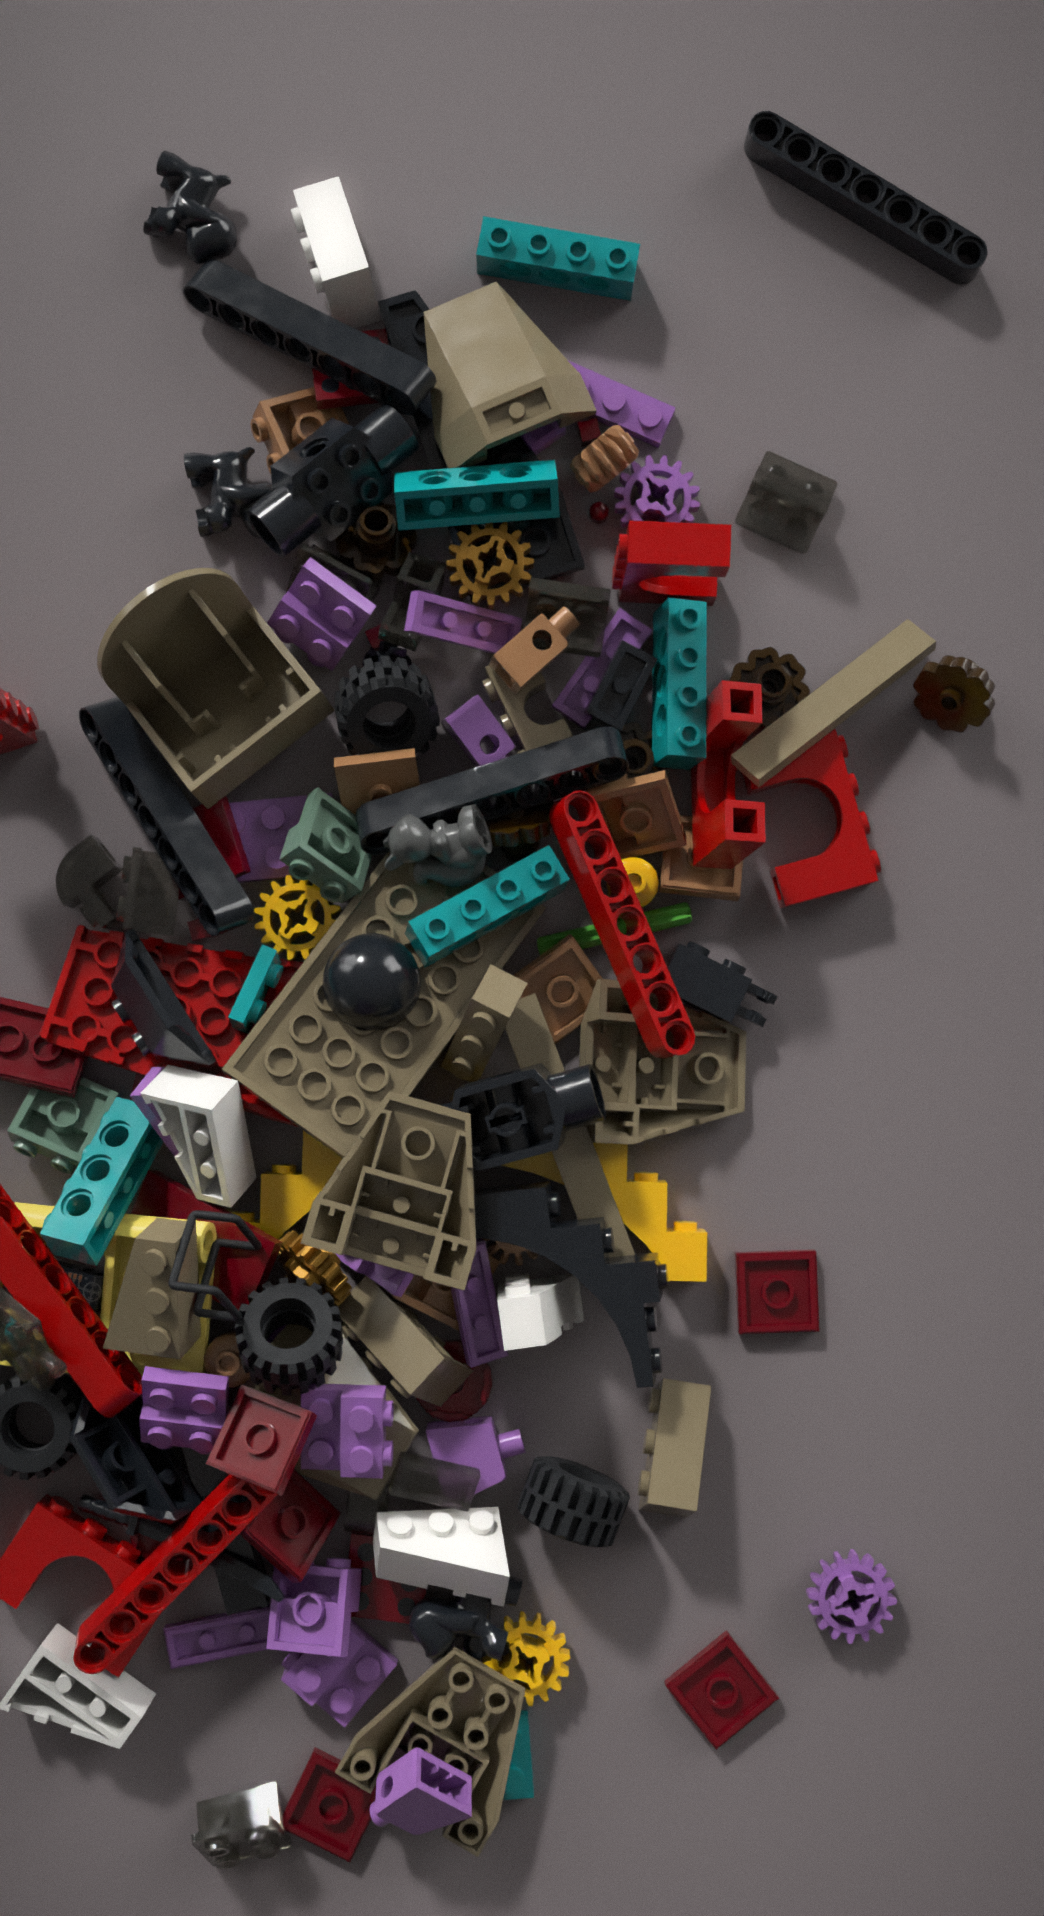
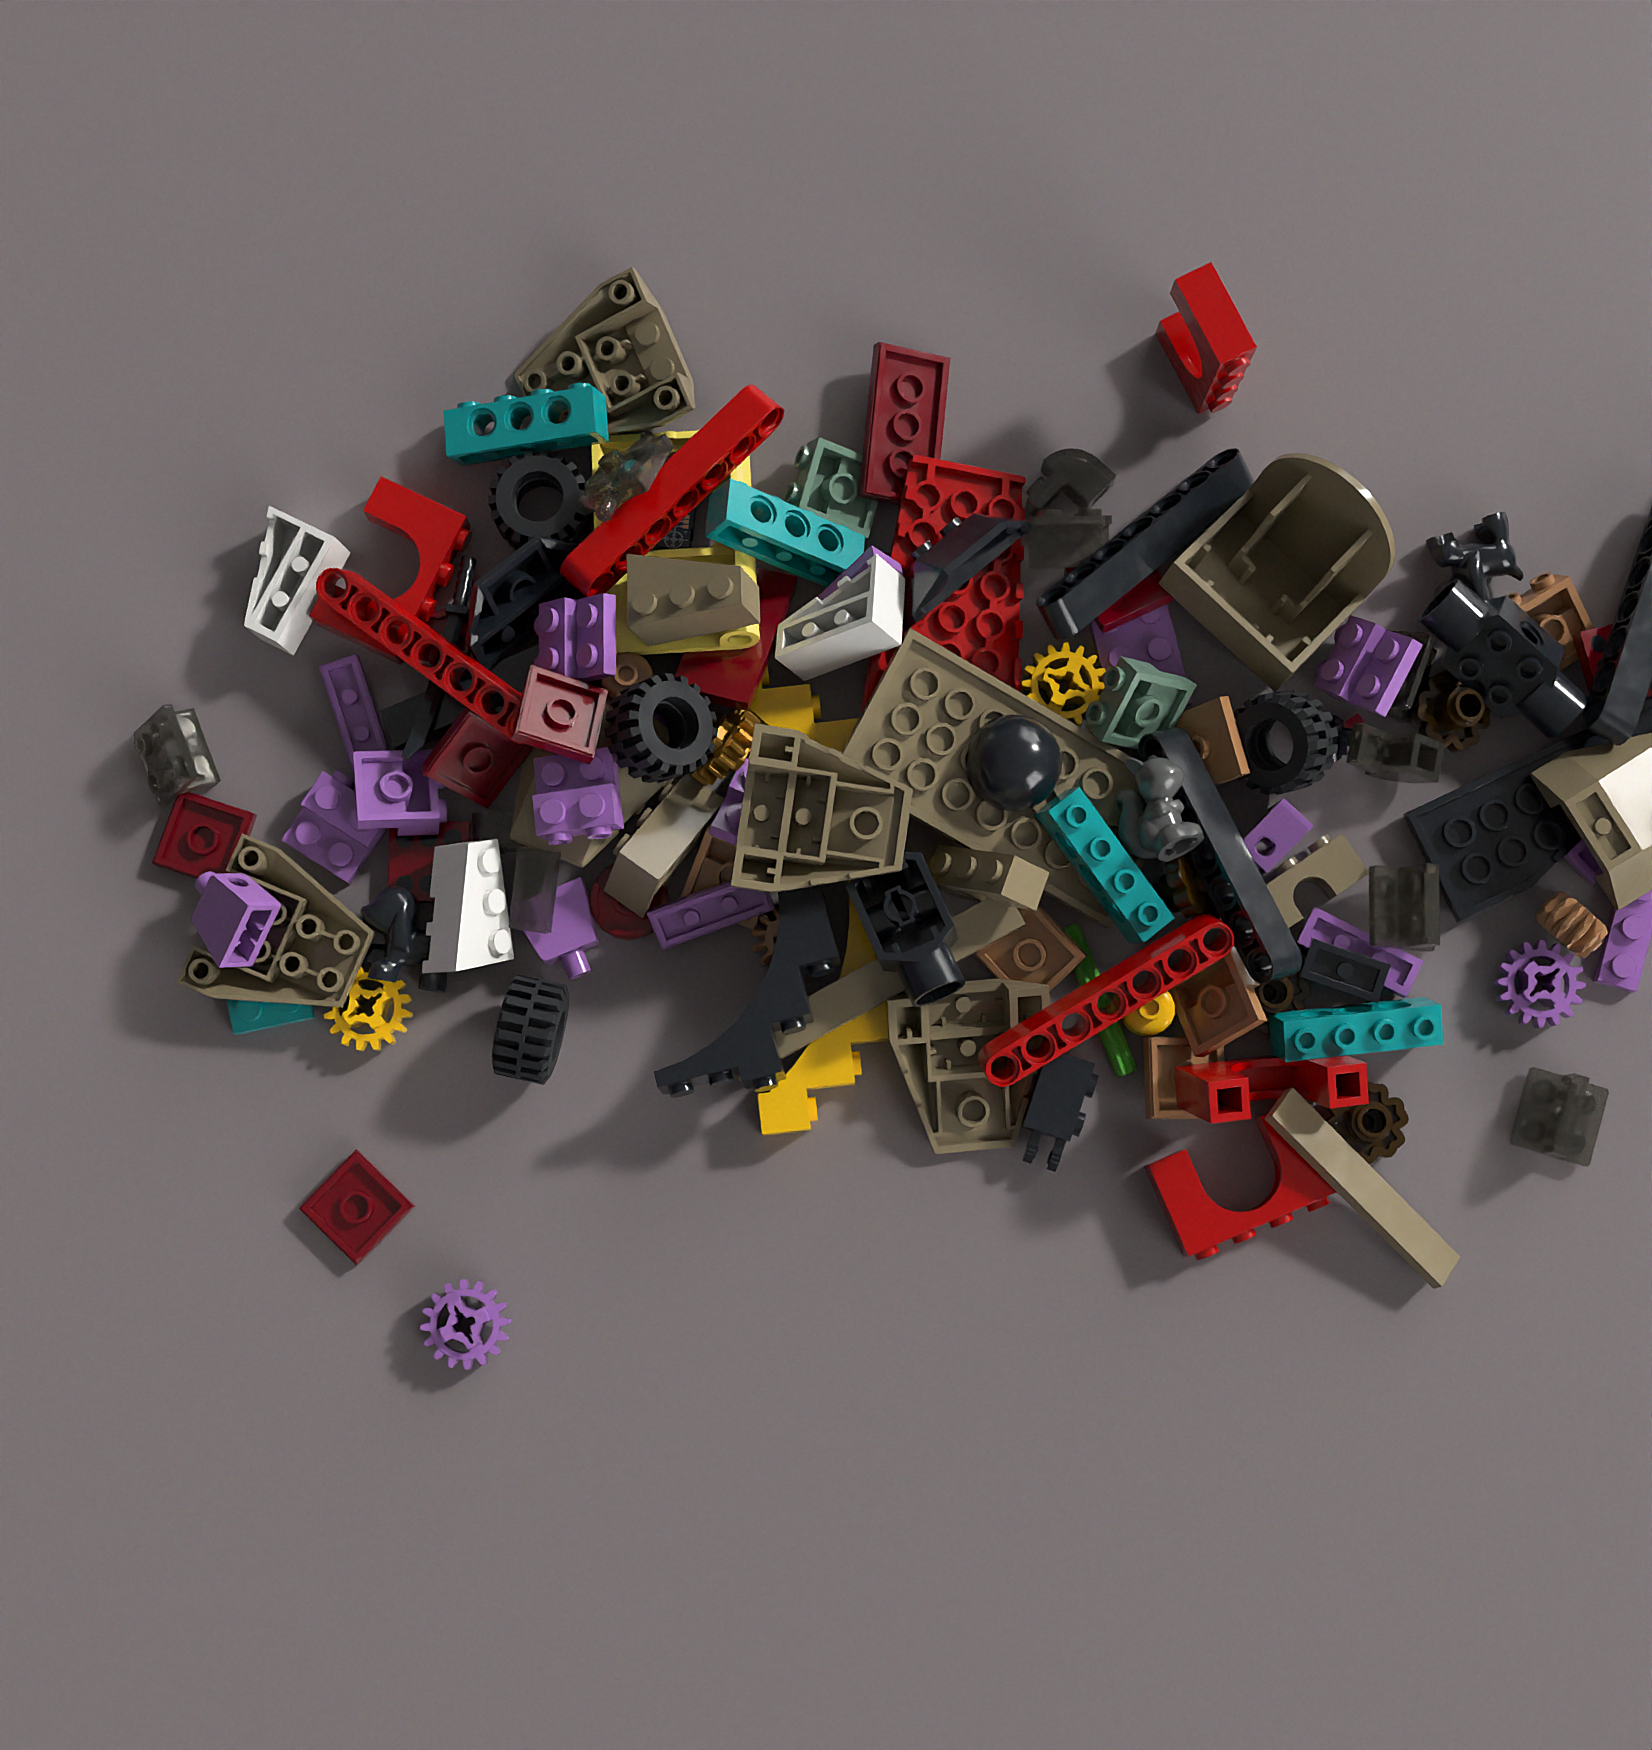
camera: 85 degrees right, 5 degrees down
(197, 930) = (1035, 591): dark red piece -> none
(204, 1288) = (703, 642): black piece -> none
(249, 1004) = (1002, 657): teal plate -> none
(459, 622) = (1381, 805): medium lavender plate -> none
(476, 495) = (1512, 800): teal brick -> none
(505, 570) = (1449, 807): pearl gold gear -> none
(521, 661) = (1350, 867): medium nougat torso -> none
(537, 1308) = (713, 969): white wedge -> none
(588, 431) = (1598, 907): dark red piece -> none
(599, 512) = (1516, 929): dark red piece -> none
(671, 561) = (1476, 996): red arch -> none
(674, 1448) = (591, 1124): dark tan wedge -> none
(776, 1291) = (758, 1211): dark red tile -> none
(954, 693) = (1391, 1311): dark brown plant -> none

